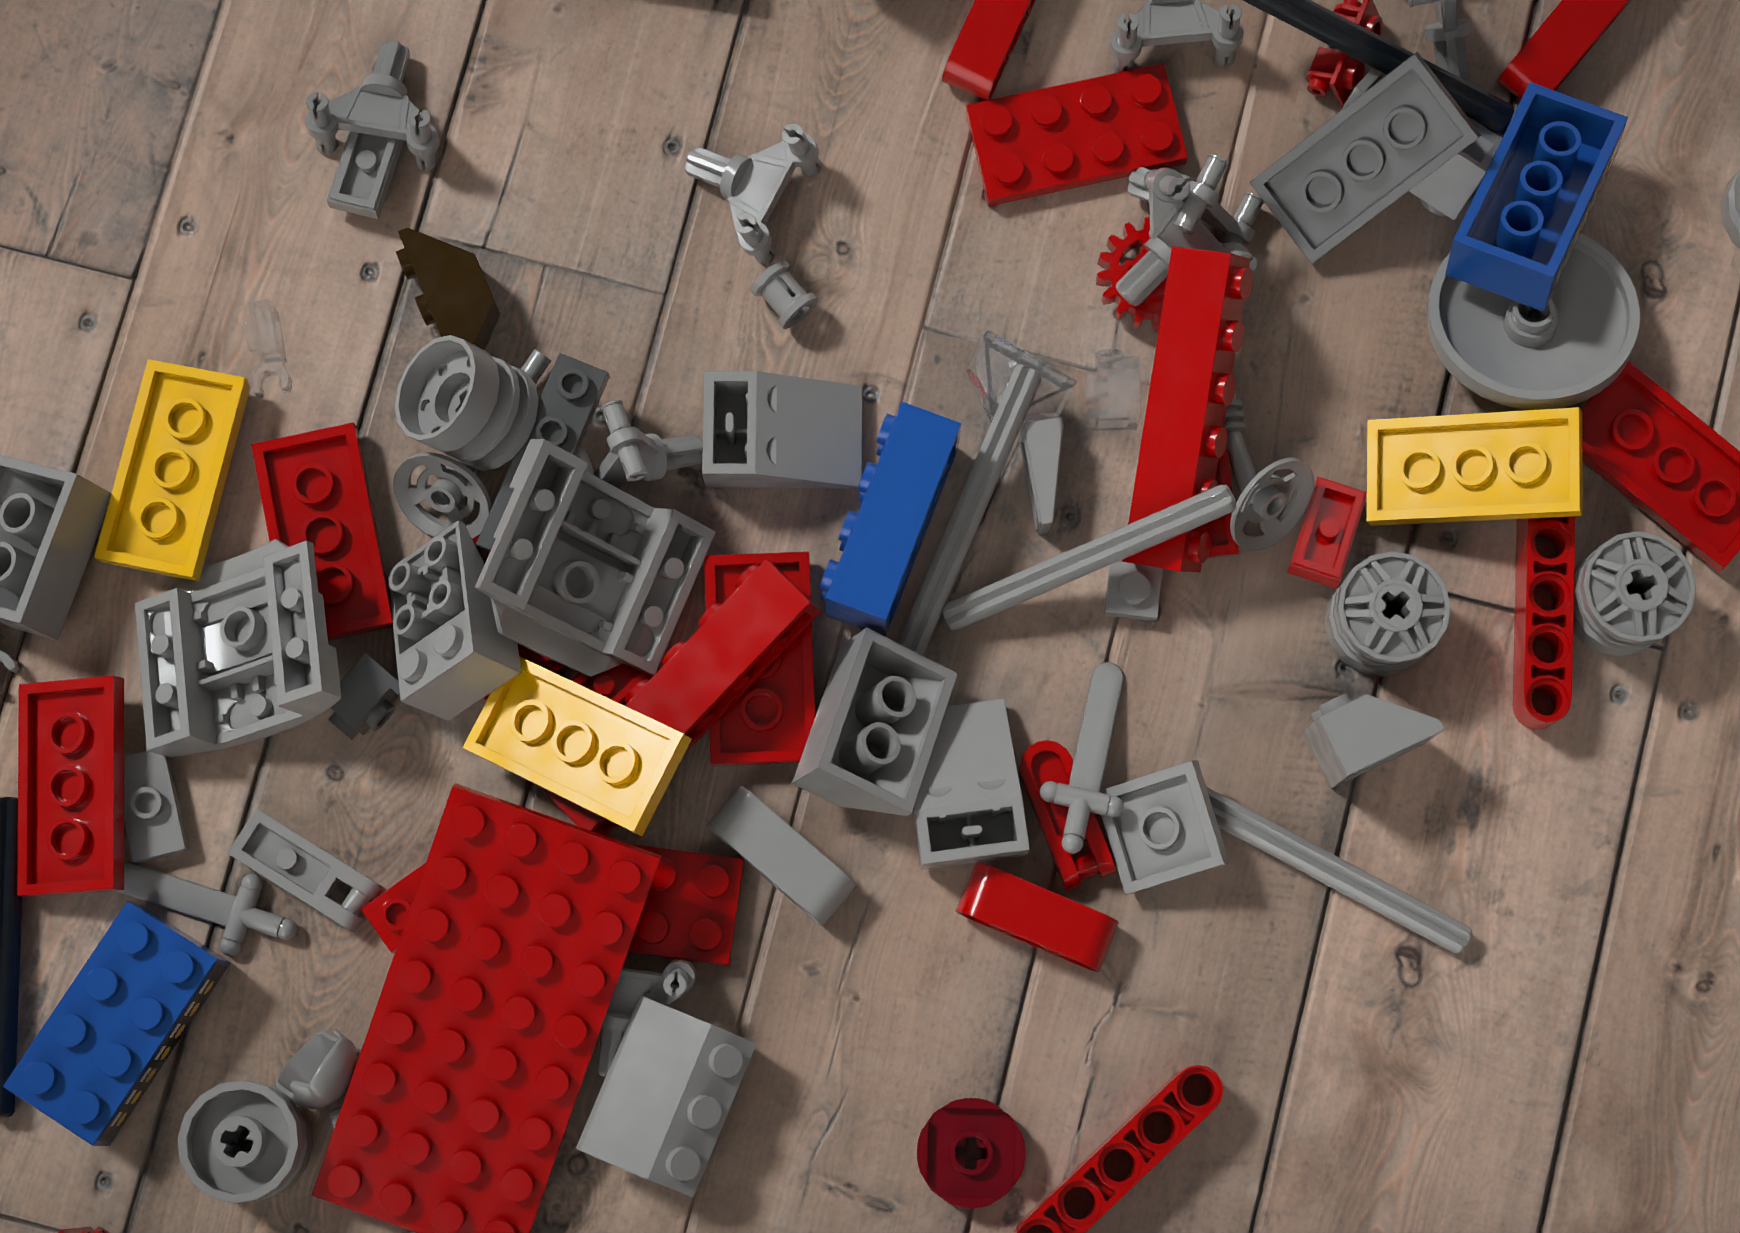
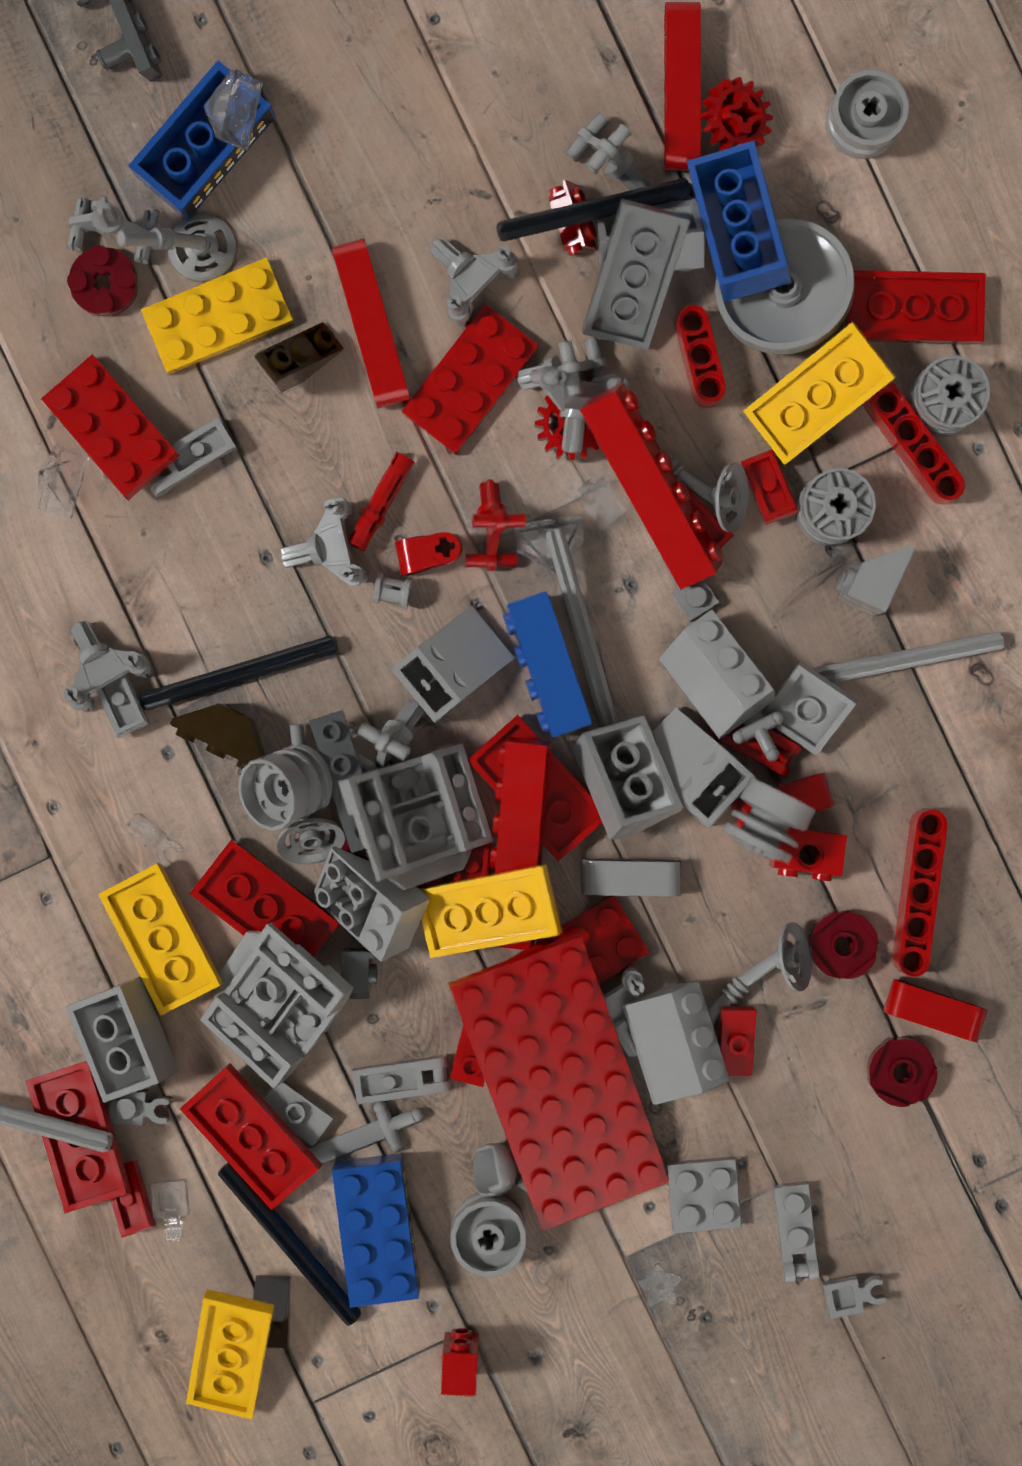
camera: 35 degrees left, 10 degrees up
(528, 245) = (238, 673): none -> black axle
(744, 1160) = (737, 1039): none -> red plate
(854, 280) = (421, 553): none -> red piece
(866, 181) = (373, 514): none -> red pin
(884, 1107) = (786, 957): none -> light grey dish
(972, 299) = (494, 518): none -> red axle
(1002, 909) = (769, 820): none -> light grey wheel
(1041, 458) = (595, 568): light grey slope -> none
(1051, 1011) = (828, 859): none -> red brick
(1083, 696) = (716, 675): none -> light grey slope
(1089, 557) = (664, 602): light grey axle -> none
(1374, 295) = (704, 340): none -> red beam
(1632, 83) = (737, 116): none -> red gear

